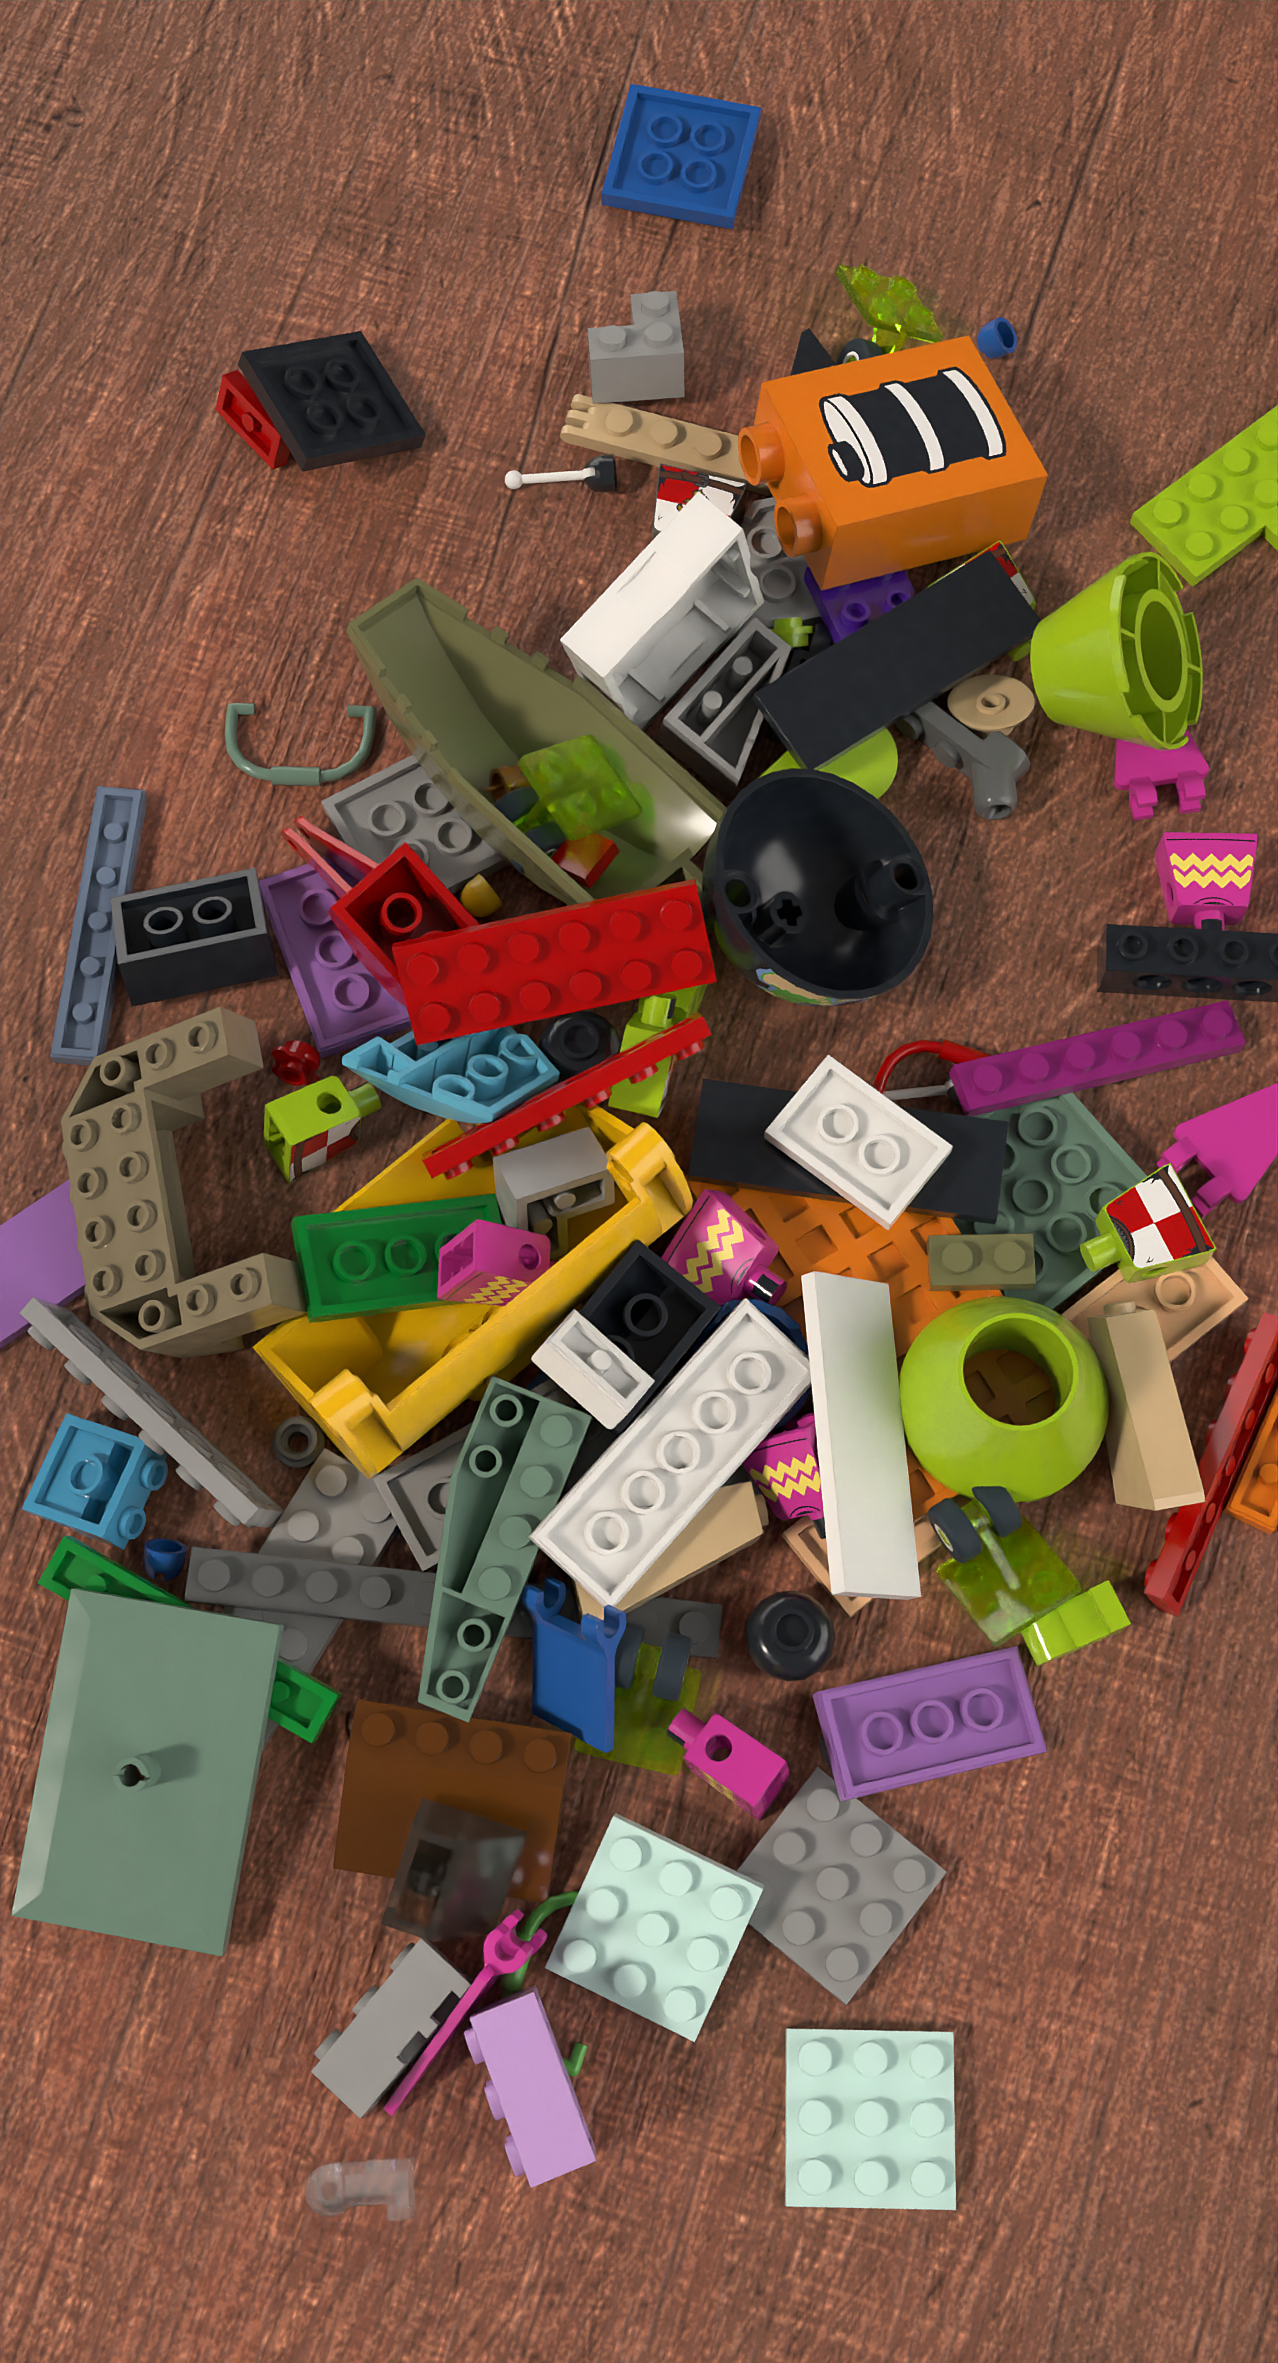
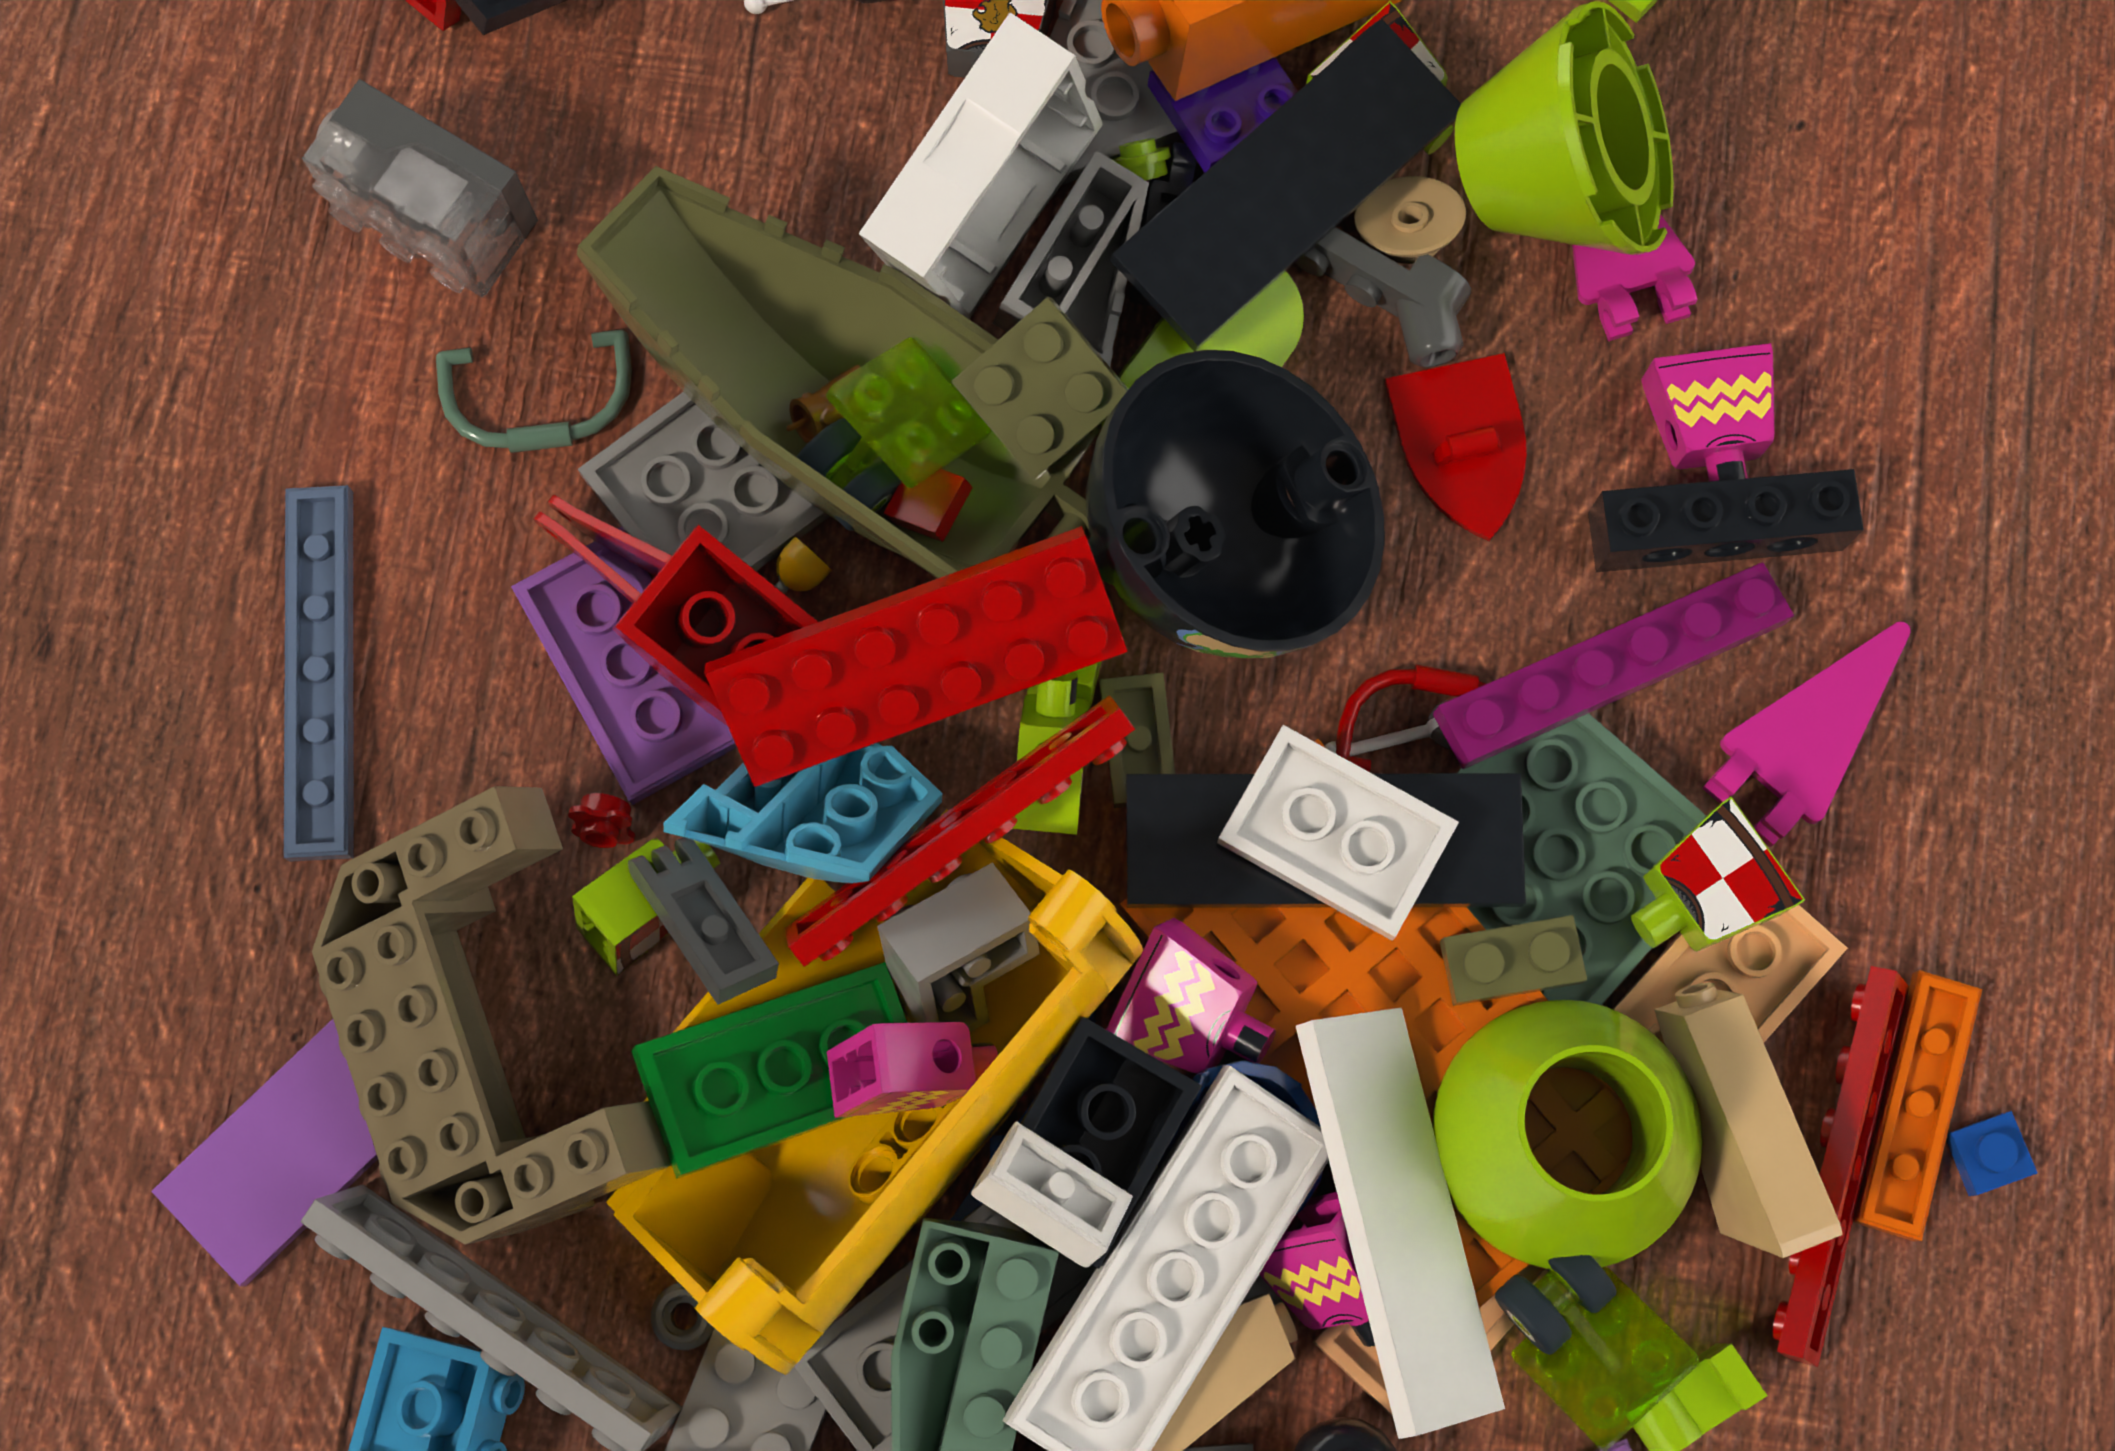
camera: 10 degrees left, 5 degrees up
(193, 937) = (441, 674): black slope -> none
(236, 579) = (419, 189): none -> clear piece
(362, 1136) = (704, 920): none -> dark grey hinge
(578, 1042) = (962, 752): black piece -> none
(682, 782) = (1041, 388): none -> olive plate
(723, 1053) = (1150, 744): none -> olive plate
(1008, 877) = (1463, 439): none -> red shield

